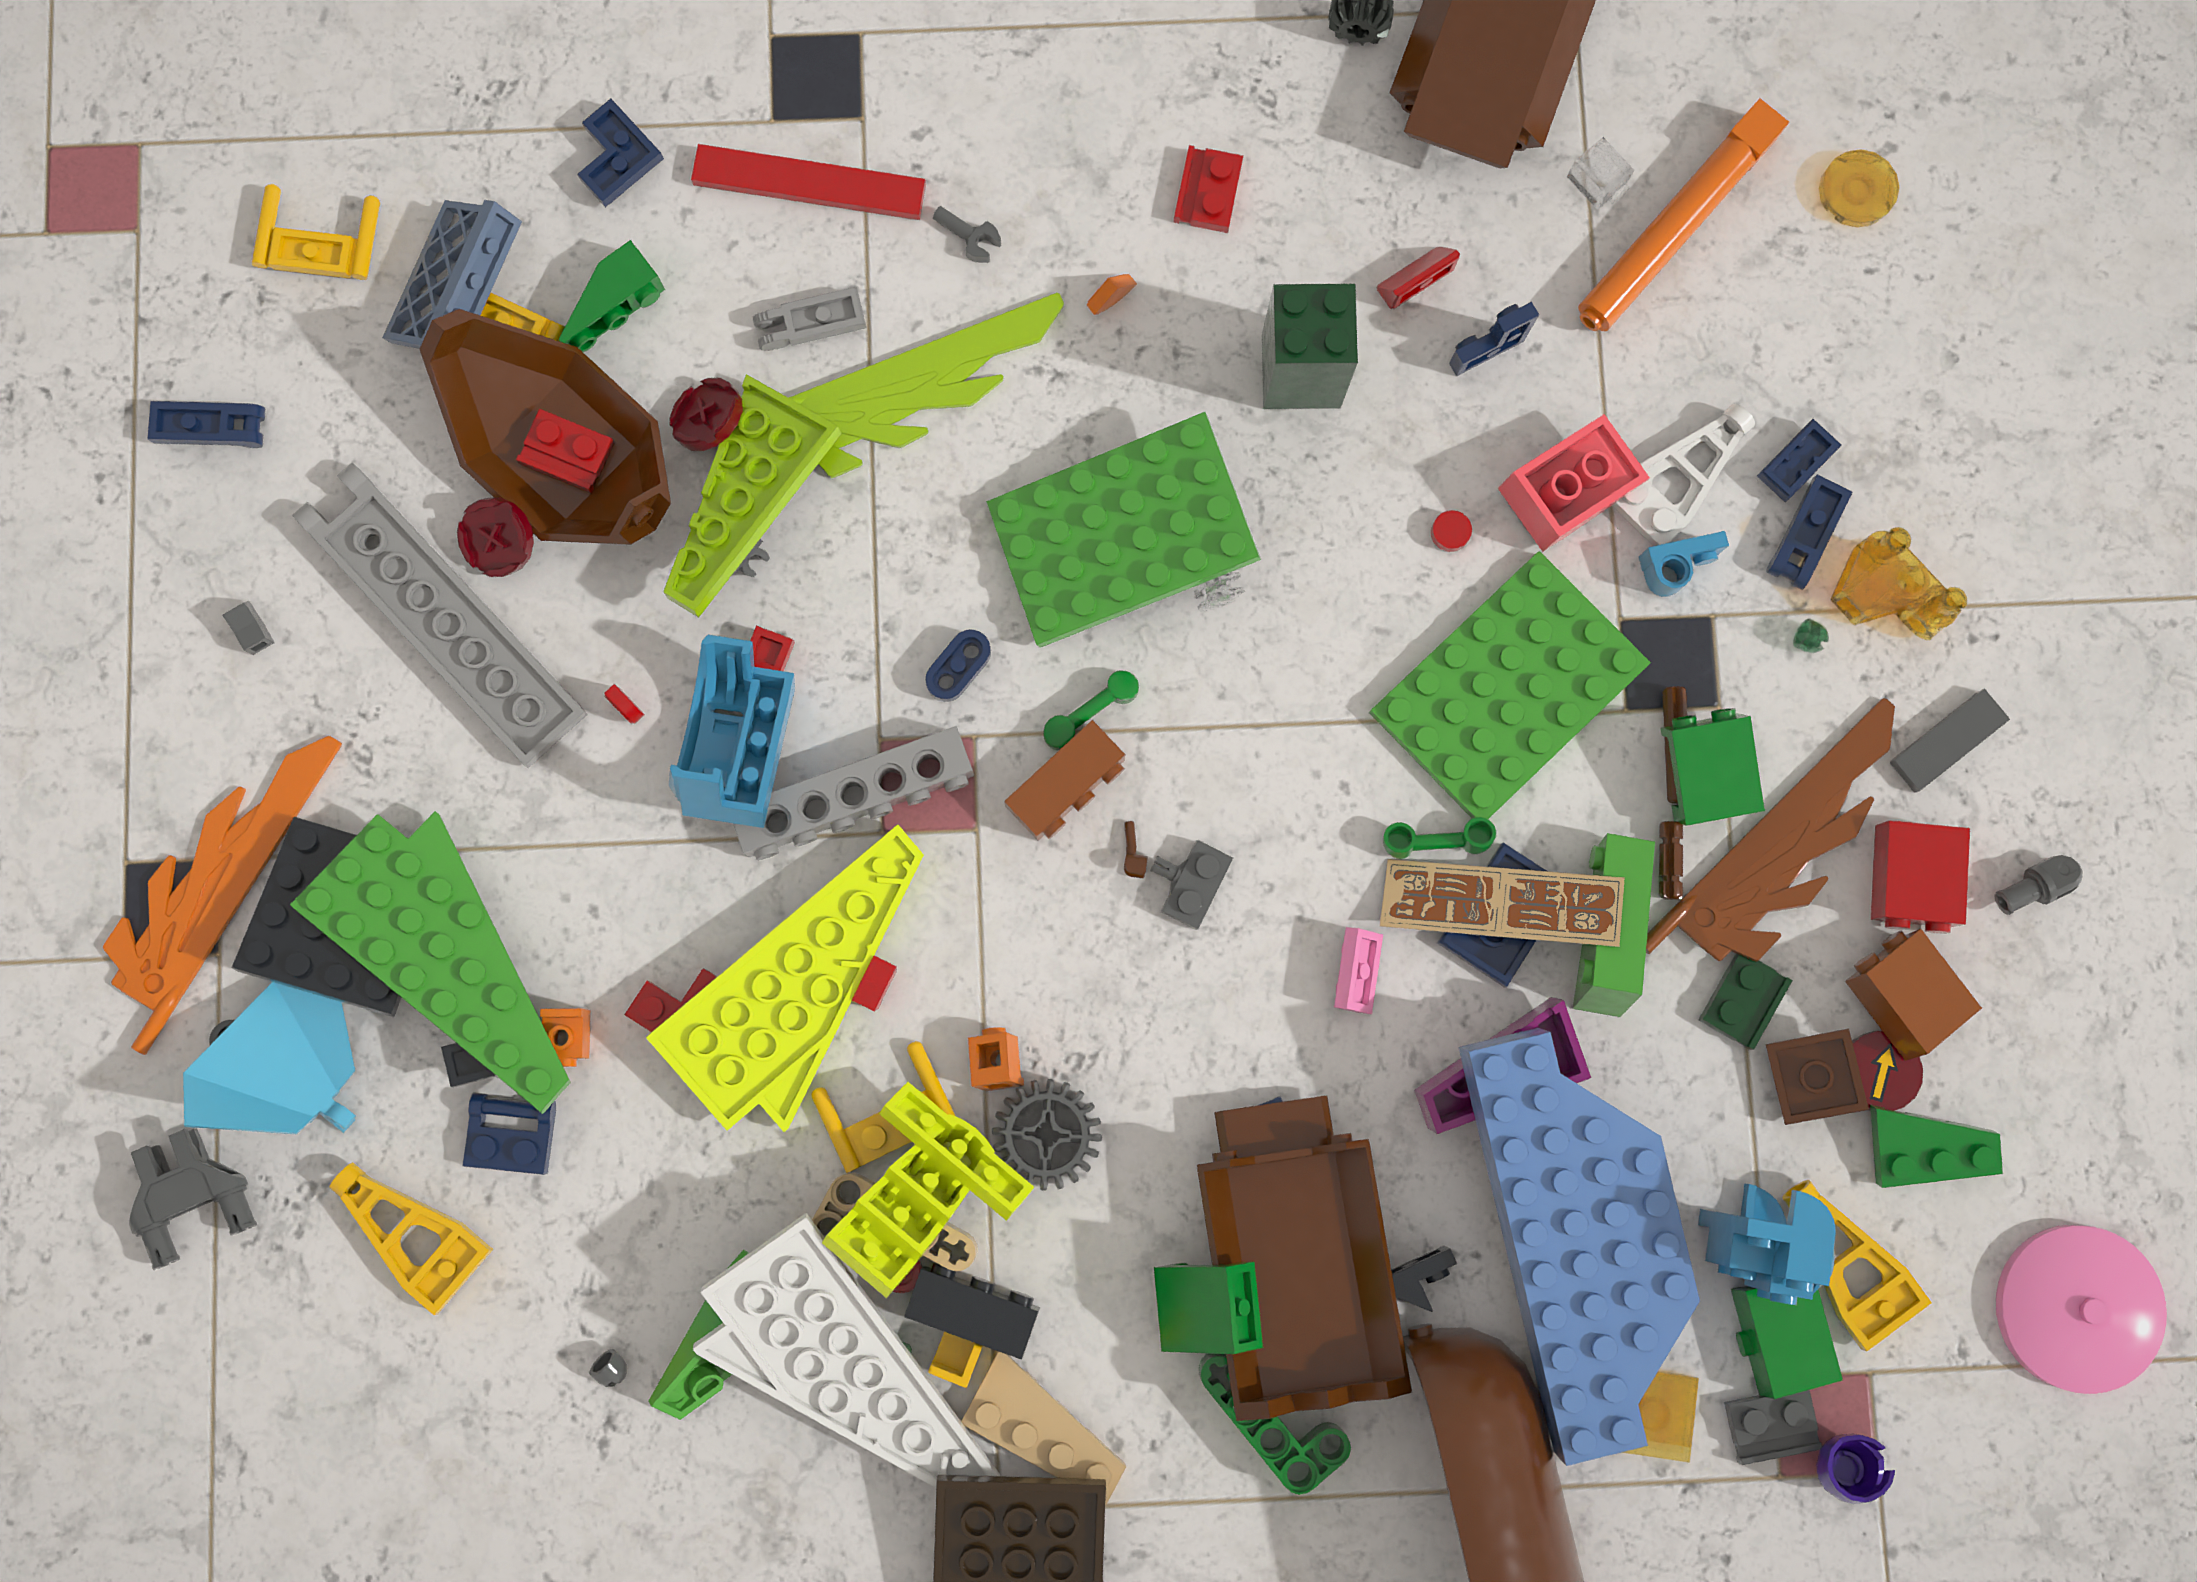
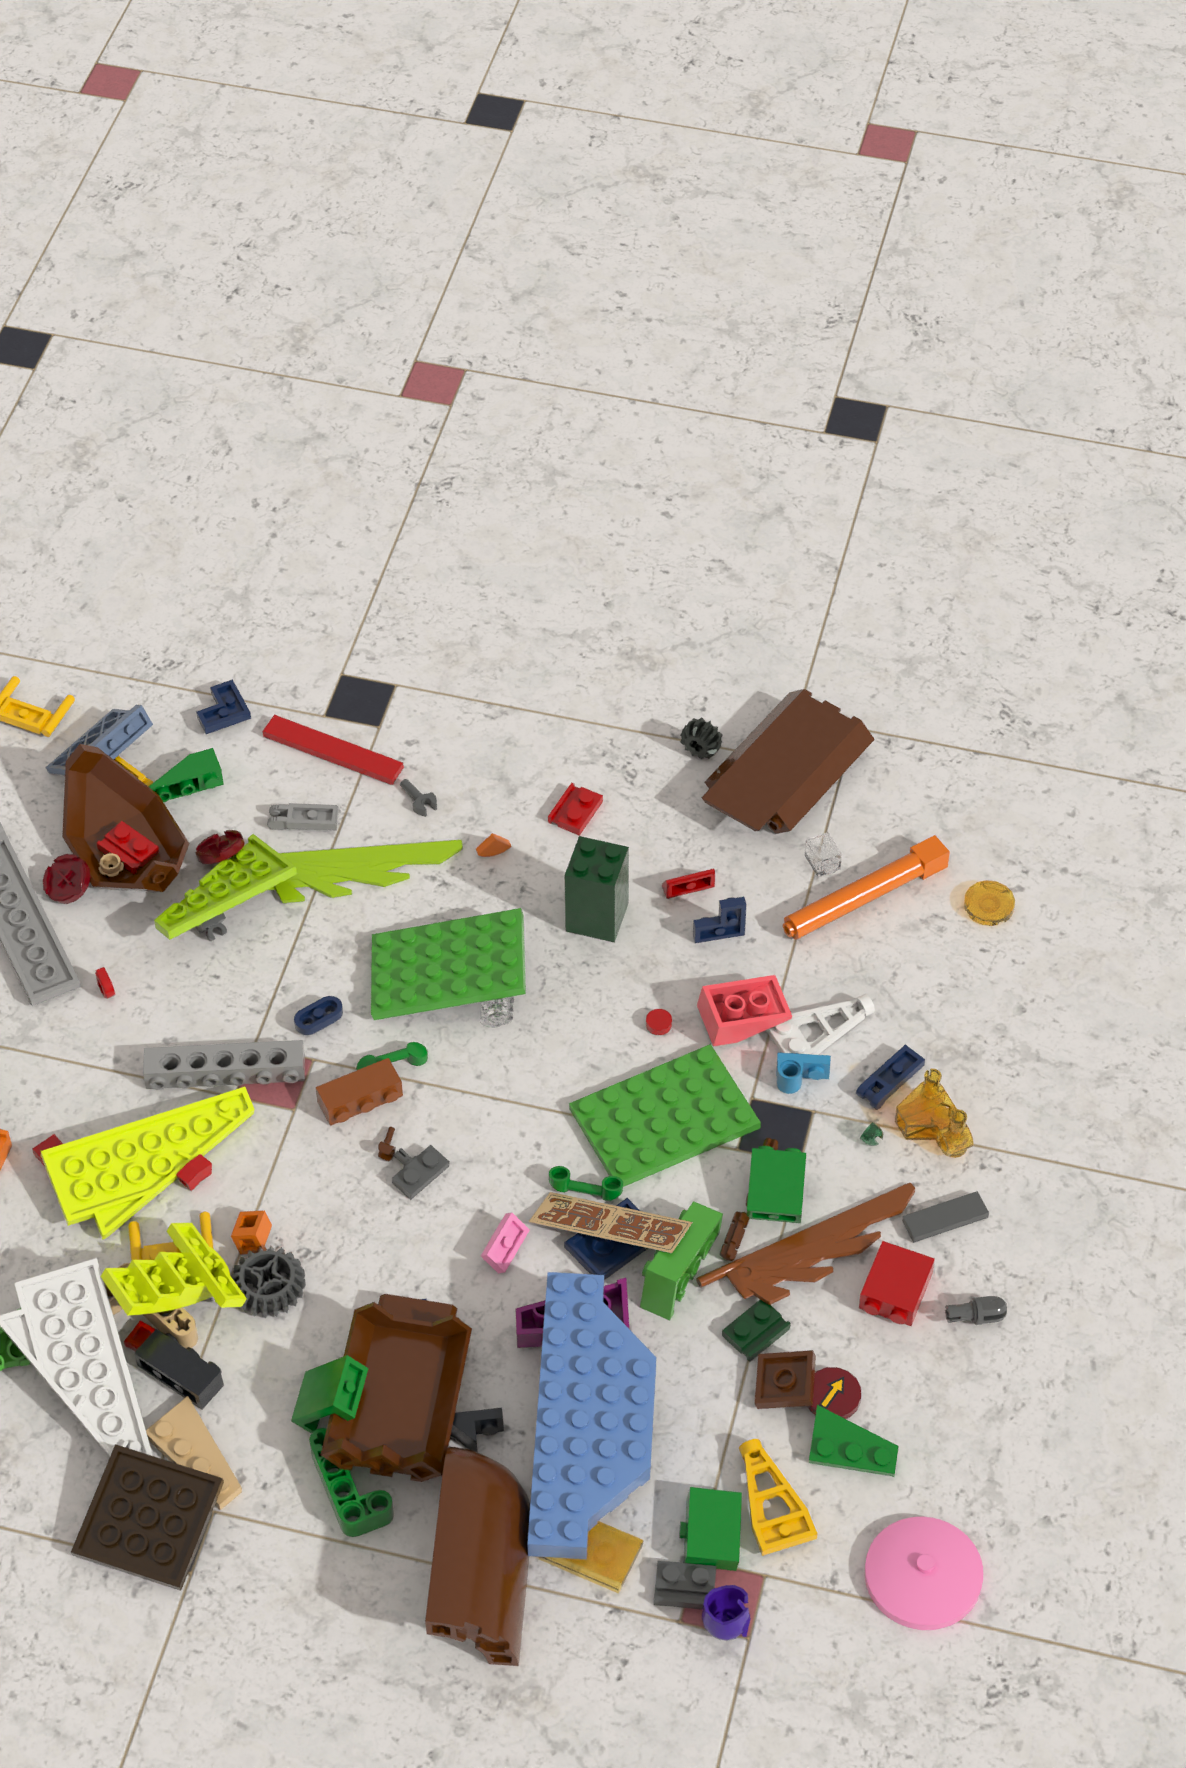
camera: 20 degrees right, 30 degrees down
(545, 486) = (113, 861): none -> tan plate
(729, 759) = (157, 1026): dark azure piece -> none
(771, 649) = (204, 979): red plate -> none
(955, 1359) = (158, 1393): yellow panel -> none
(1772, 1253) = (707, 1438): dark azure piece -> none
(1799, 460) = (895, 1036): dark blue plate -> none
(1912, 993) = (866, 1347): dark orange brick -> none

